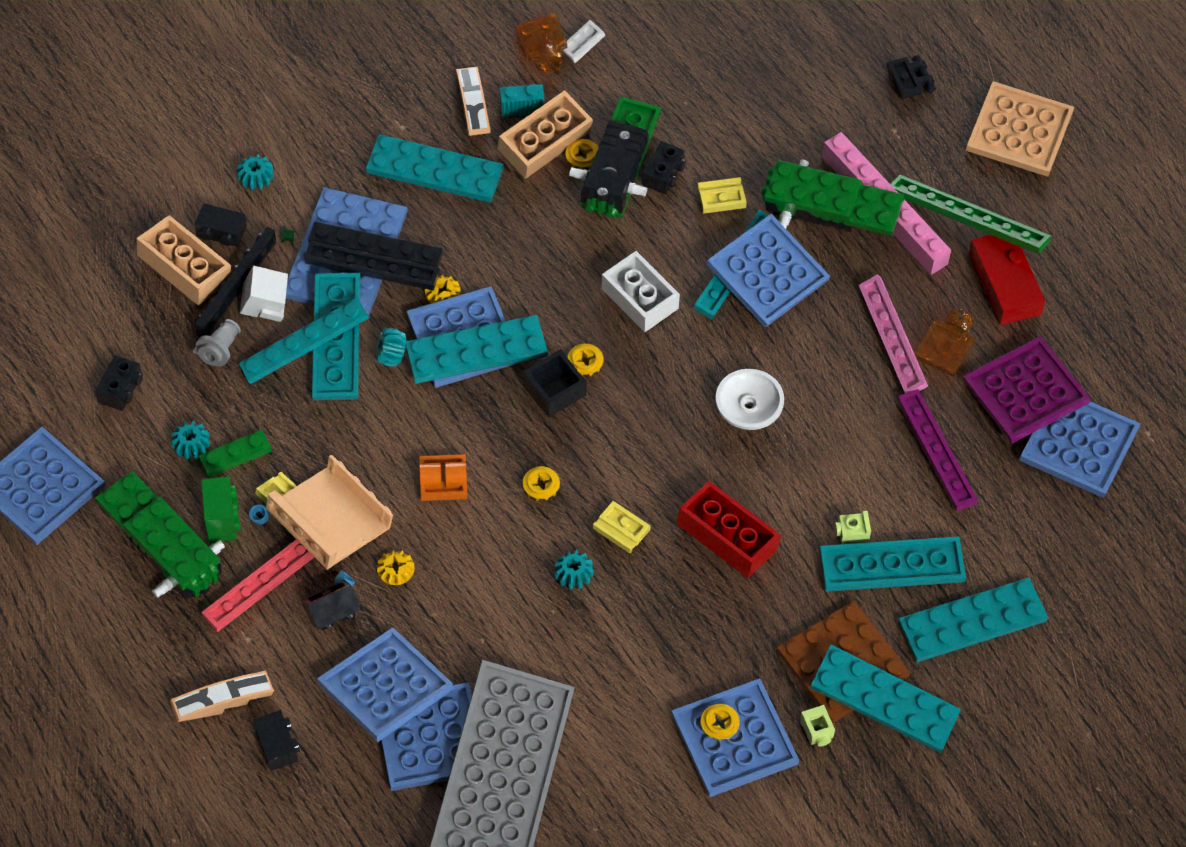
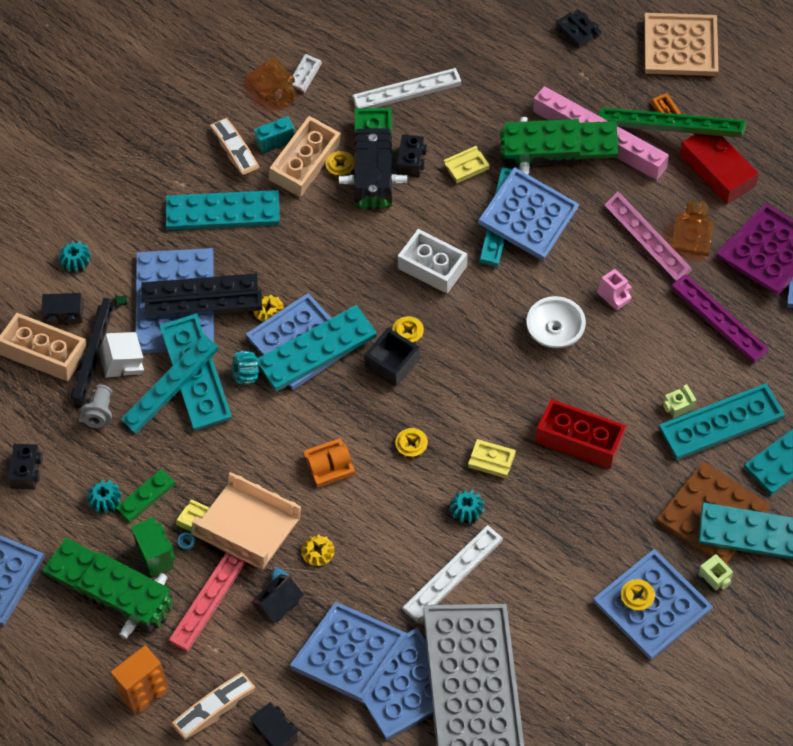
camera: 15 degrees left, 0 degrees up
(152, 643) = (140, 680): none -> orange brick
(533, 636) = (453, 573): none -> white tile
(690, 92) = (407, 89): none -> white tile
(831, 383) = (615, 289): none -> bright pink brick
(971, 184) = (654, 102): none -> orange tile

